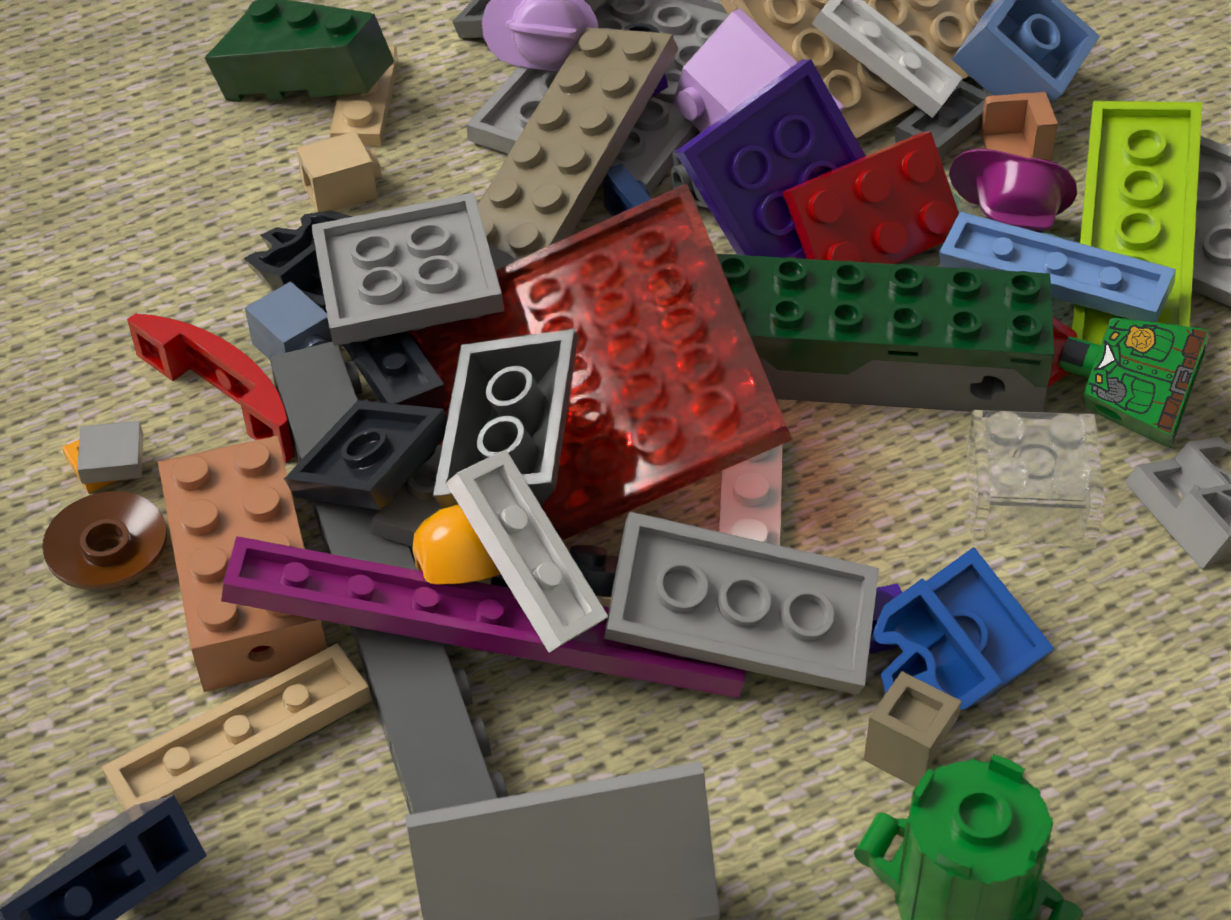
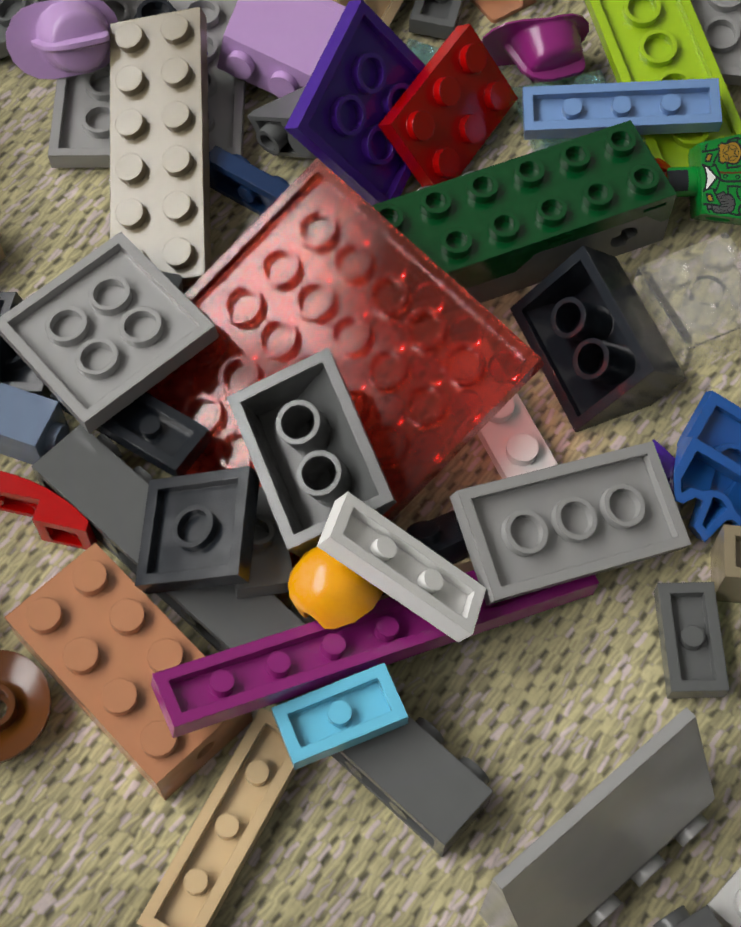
camera: 30 degrees left, 15 degrees up
(391, 663) = (339, 715): none -> medium azure plate
(808, 779) = (691, 640): none -> dark grey plate
(898, 470) = (596, 340): none -> black slope

